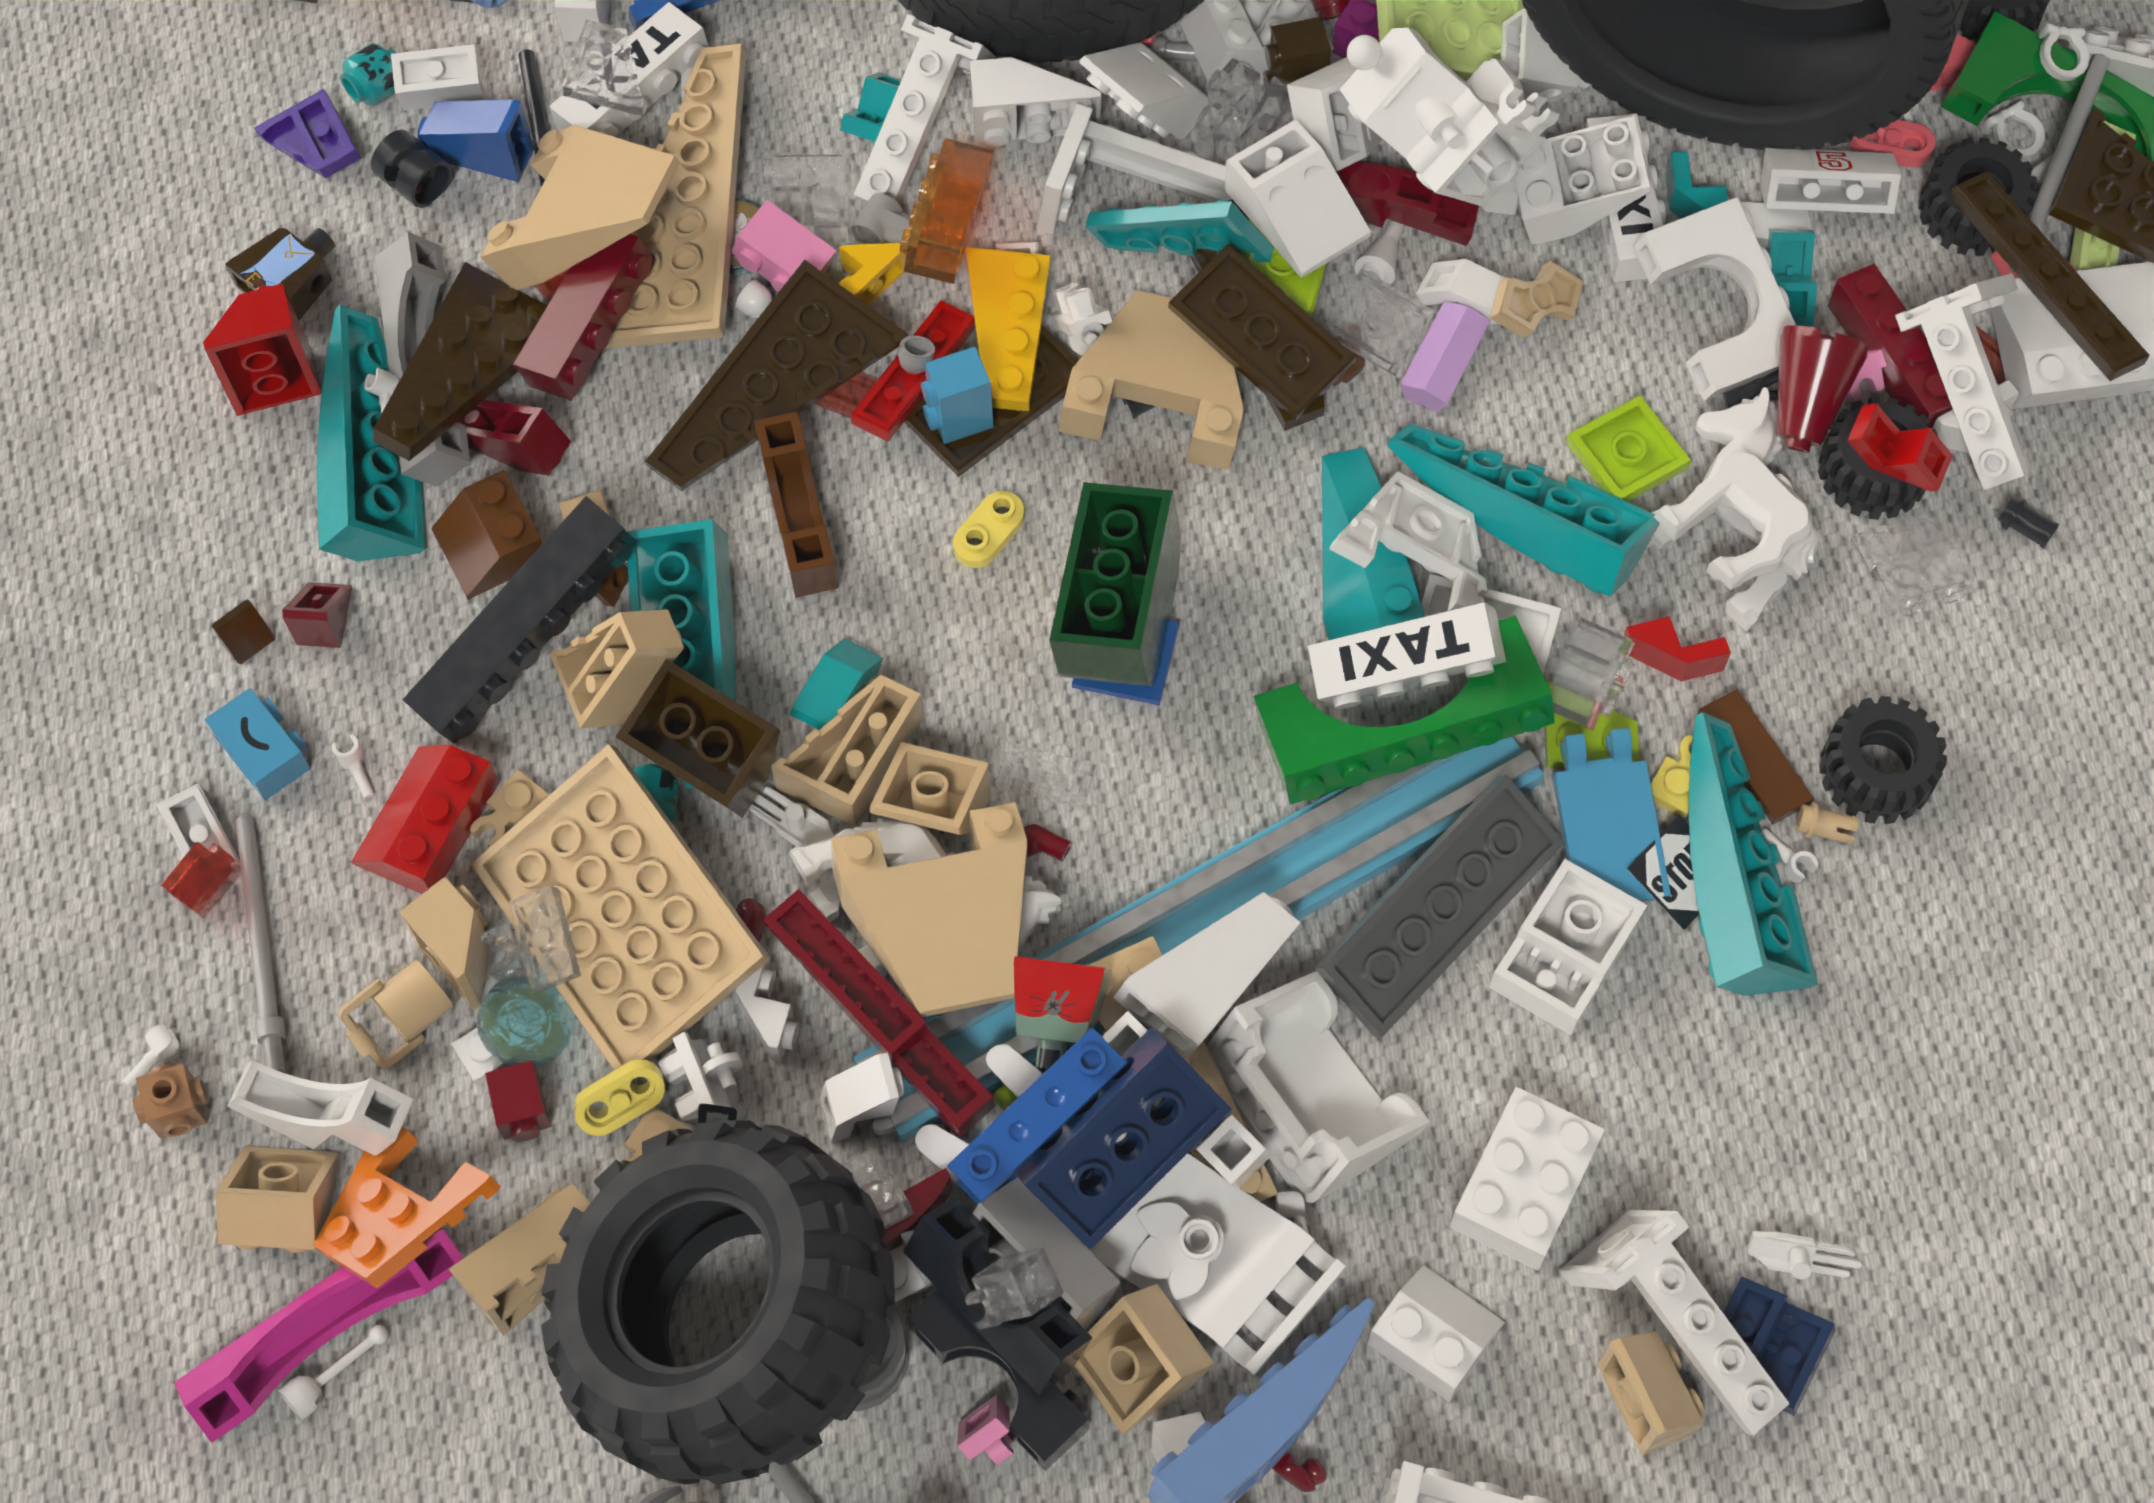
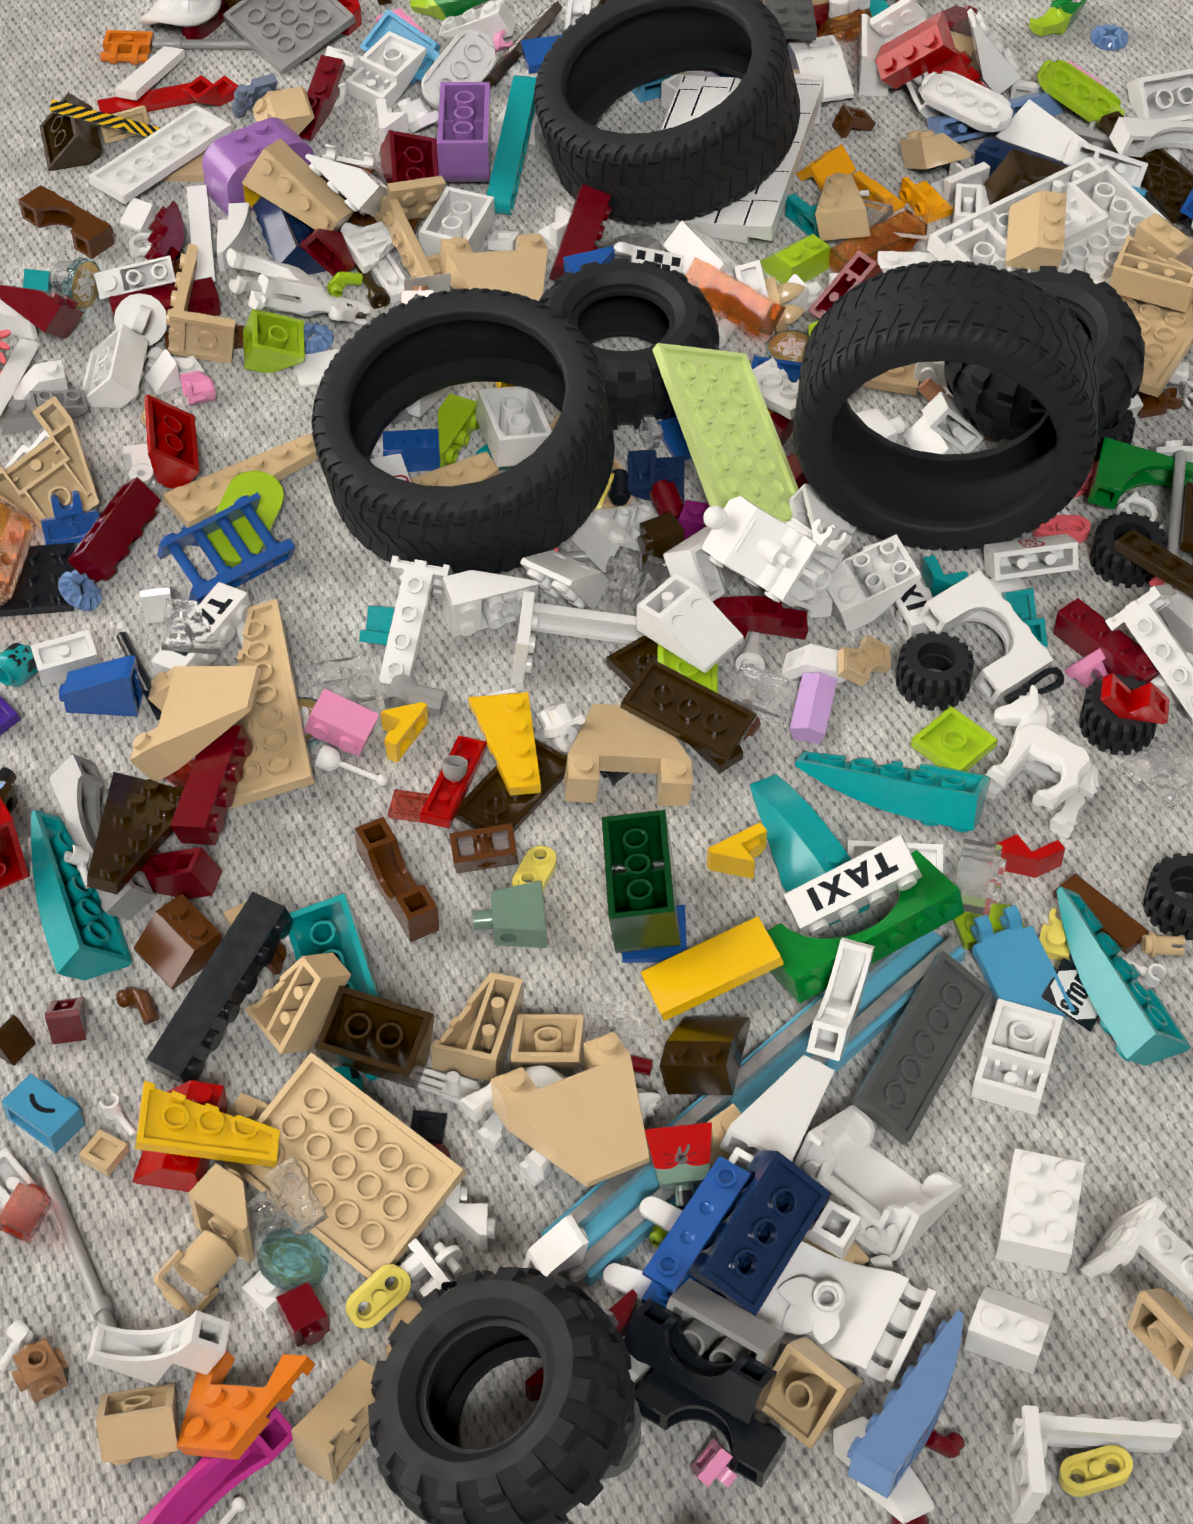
camera: 15 degrees left, 15 degrees down
(322, 815) = (104, 1152): none -> tan plate
(411, 168) = (60, 718): black wheel -> none
(421, 608) = (140, 1000): none -> reddish brown arm
(427, 819) = (186, 1128): none -> yellow wing
(748, 873) = (429, 1125): none -> black tile
(790, 358) = (366, 785): dark brown wing -> none
(834, 682) = (456, 989): teal slope -> none
(880, 1013) = (558, 1192): dark red slope -> none
(925, 483) = (484, 848): none -> reddish brown brick
(943, 591) = (515, 916): none -> sand green torso
(946, 210) = (450, 675): clear orange brick -> none
(957, 395) = (493, 786): dark azure brick -> none
(1015, 1287) = (714, 1346): clear brick -> none
(1138, 852) = (704, 1055): none -> dark brown slope
(1179, 229) = (613, 657): teal wing -> none
(1183, 728) = (711, 968): none -> yellow tile
(1264, 559) = (737, 852): none -> yellow slope
(1339, 823) = (841, 1000): none -> white arch
(1424, 528) = (836, 808): white wing -> none
(1628, 363) = (929, 686): none -> black tyre
(1814, 382) = (1065, 672): dark red cone -> none
(2074, 36) = (1145, 442): white piece -> none

